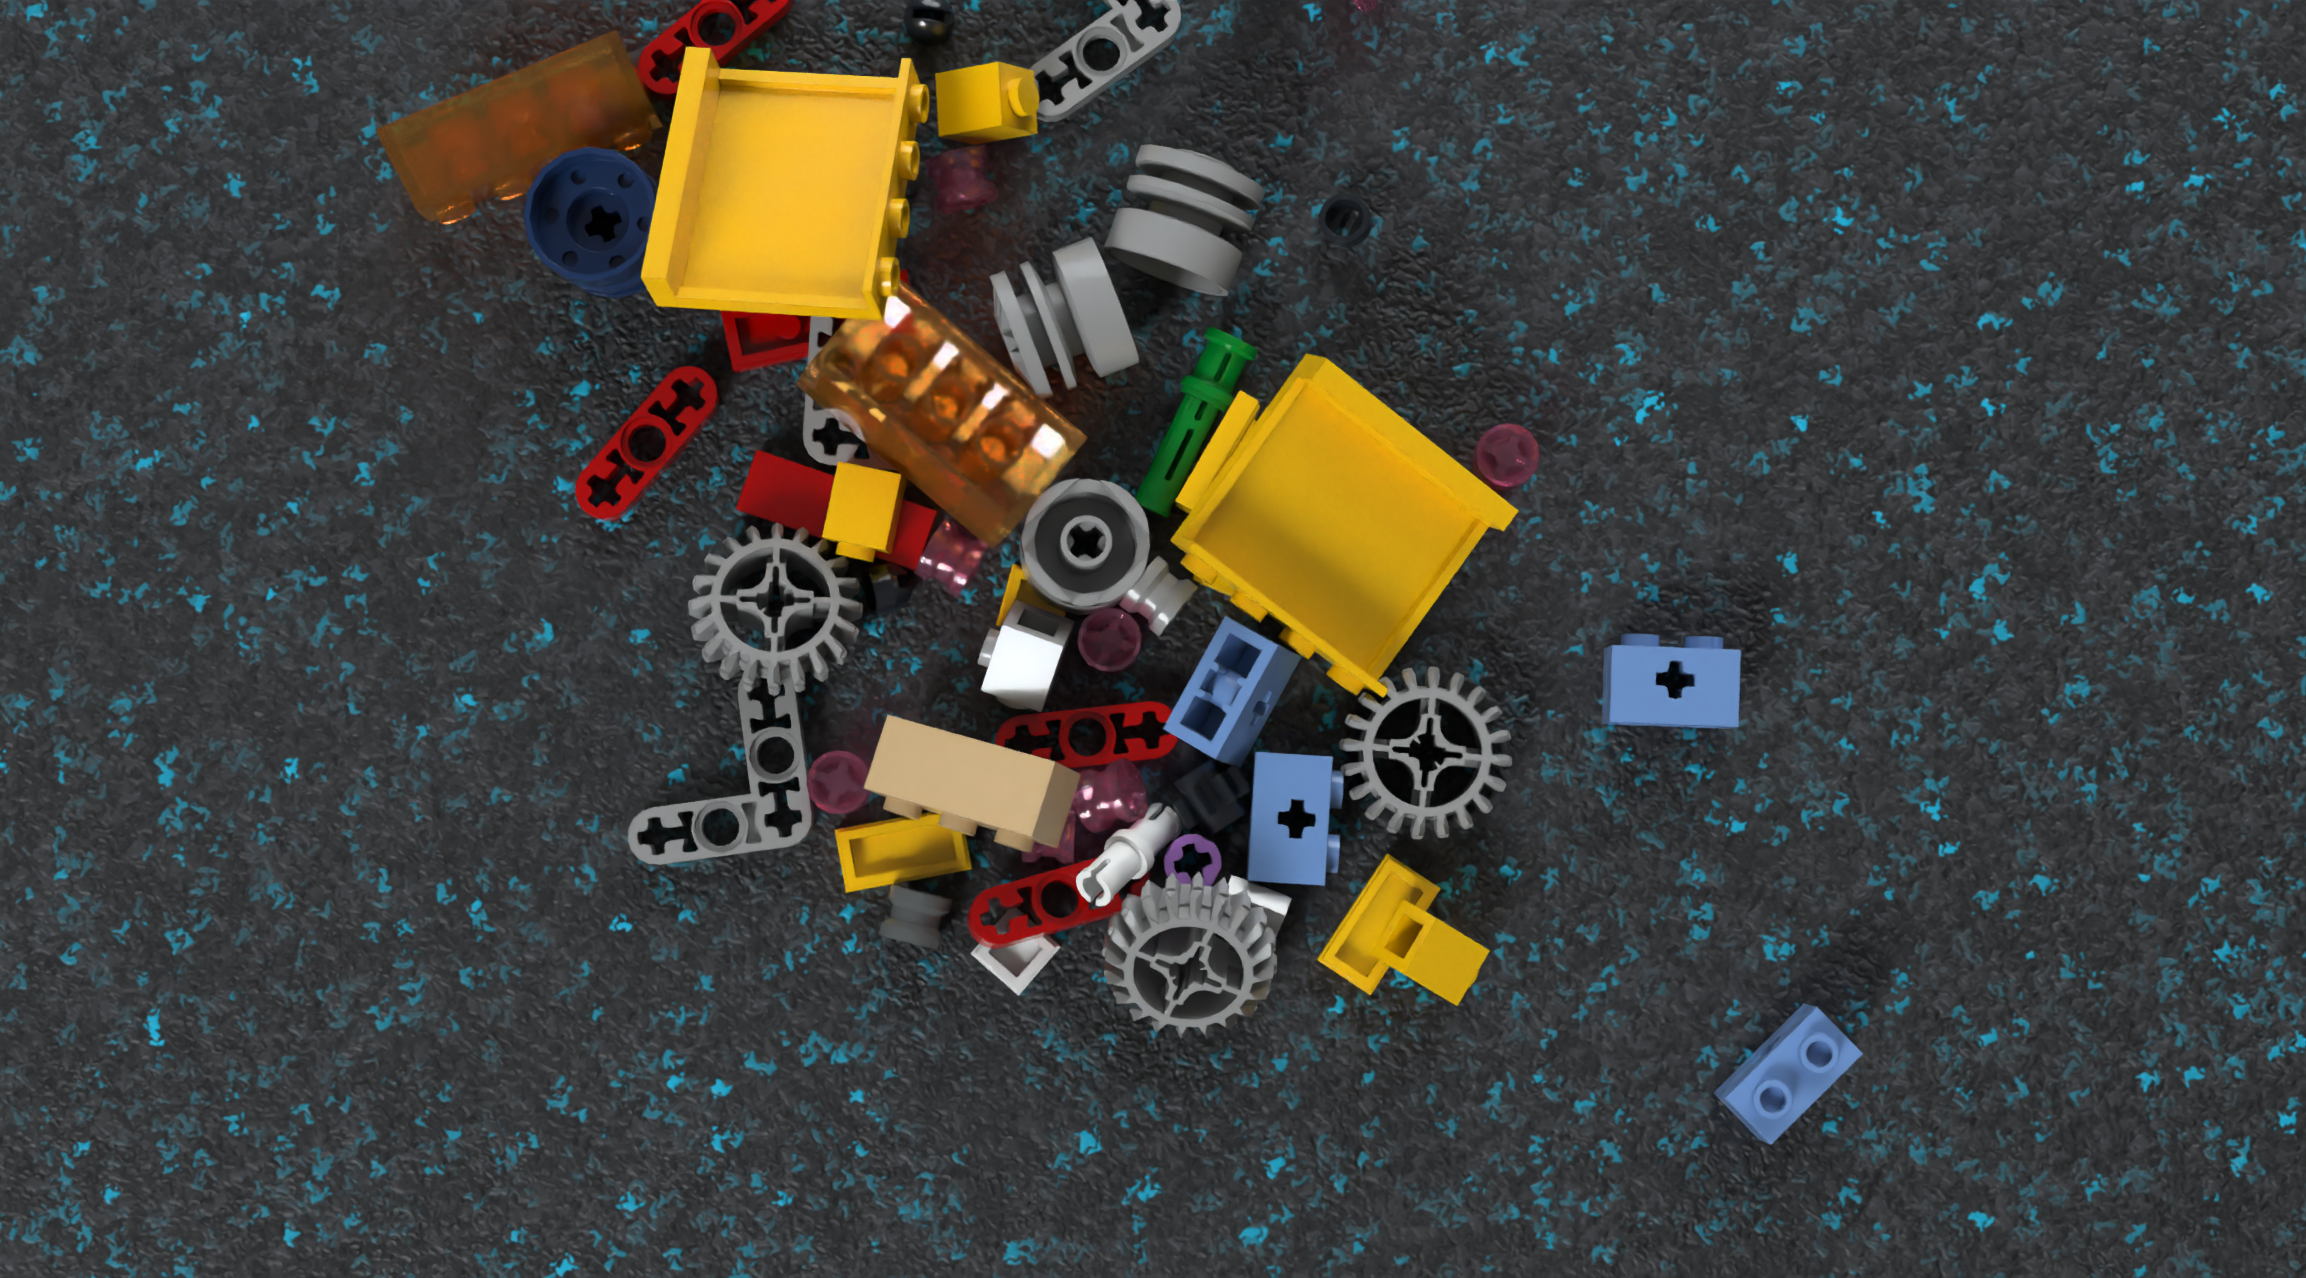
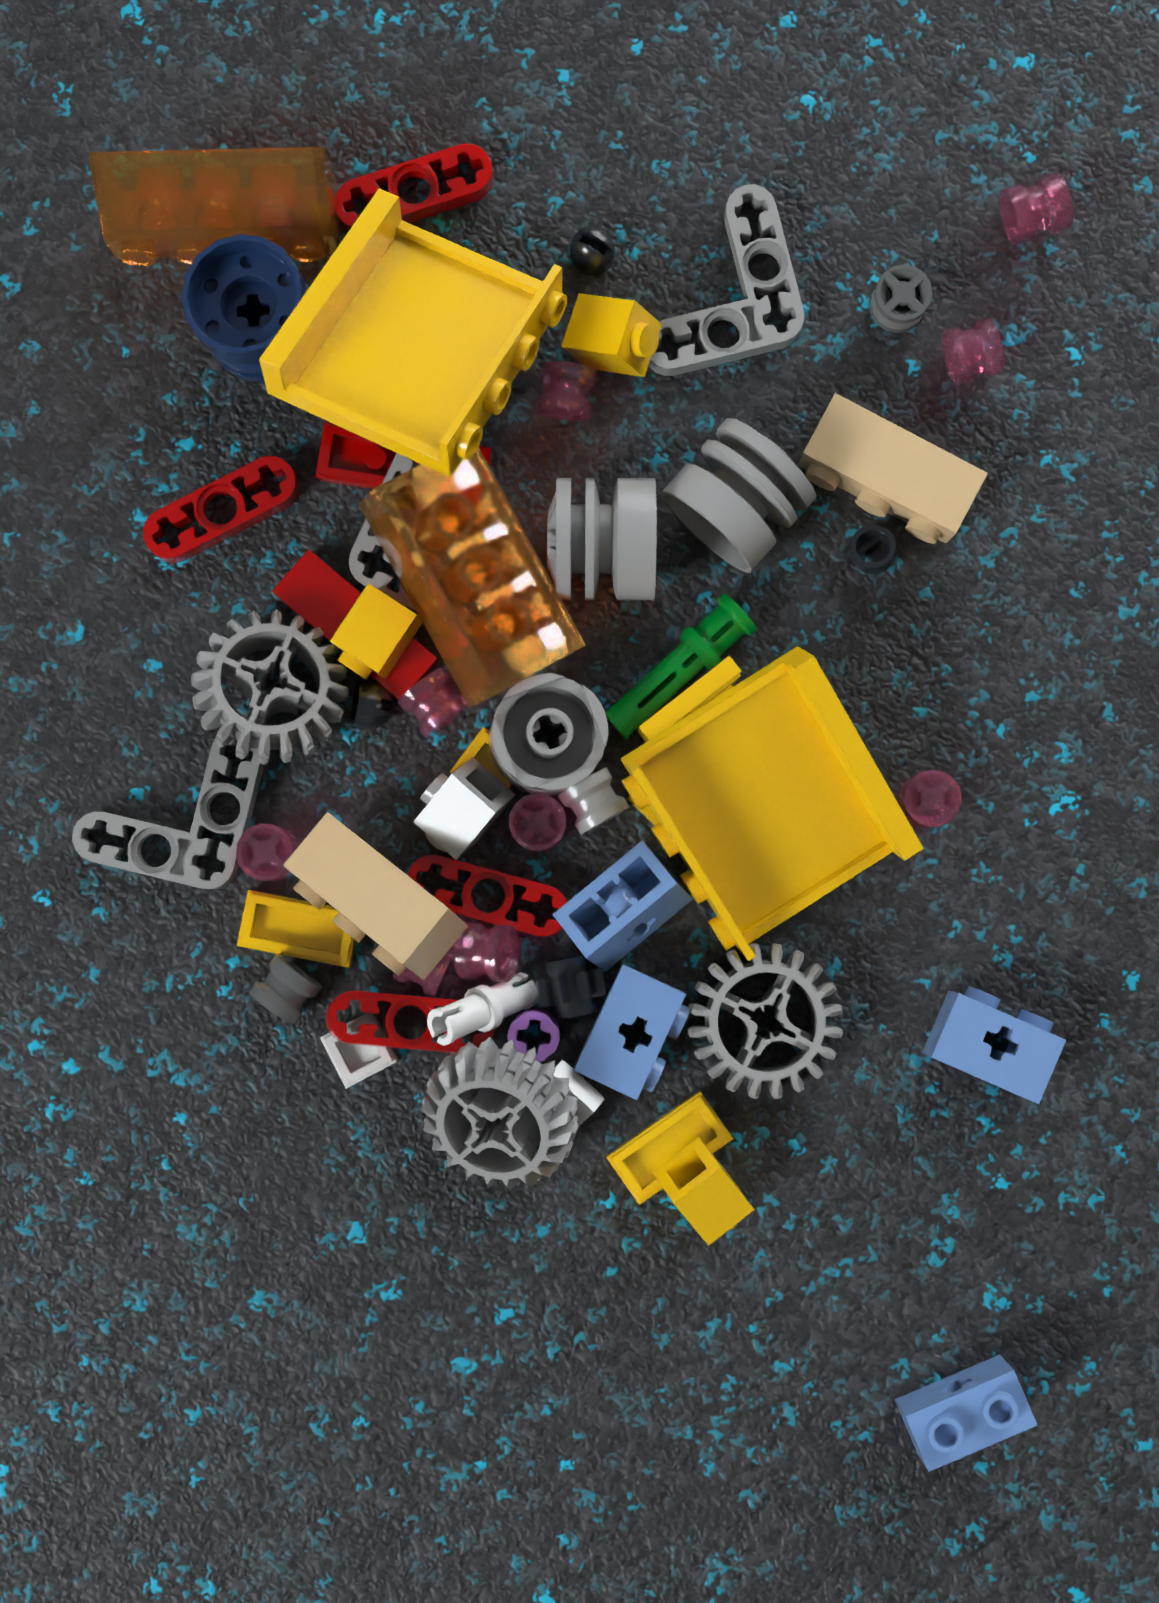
camera: 25 degrees right, 0 degrees up
(1332, 131) = (891, 471): none -> tan brick

